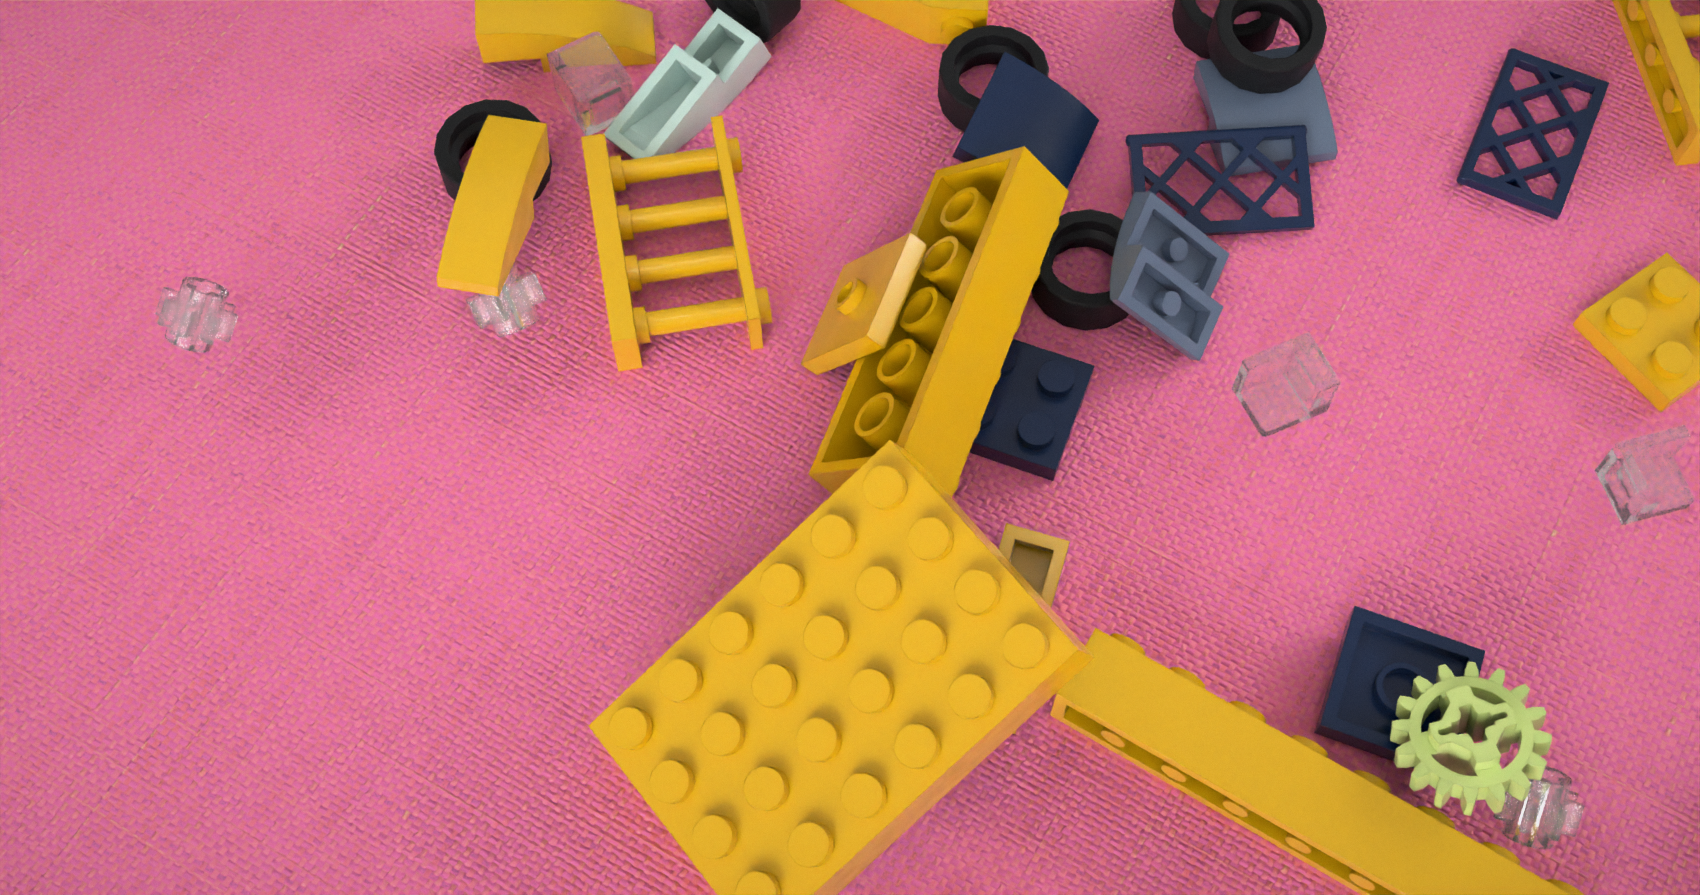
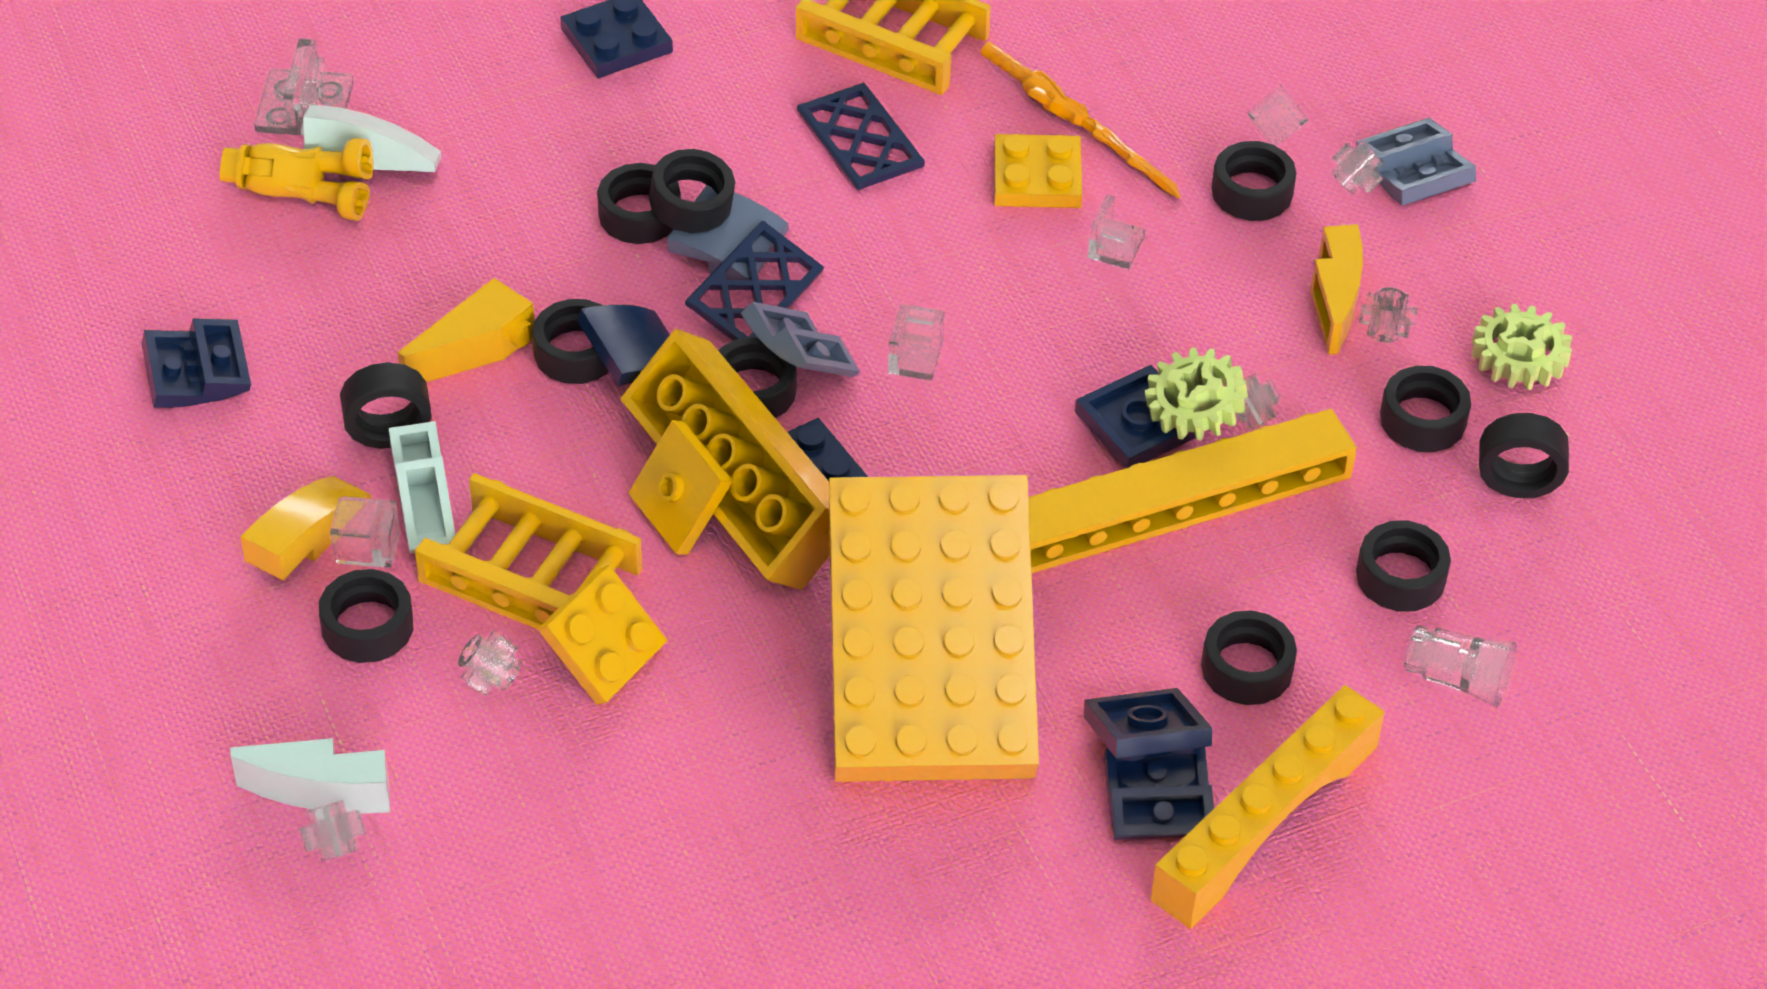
camera: 55 degrees left, 15 degrees down
(262, 258) = (313, 775): none -> light aqua slope
(494, 205) = (432, 611): yellow slope -> none
(610, 373) = (602, 635): none -> yellow plate

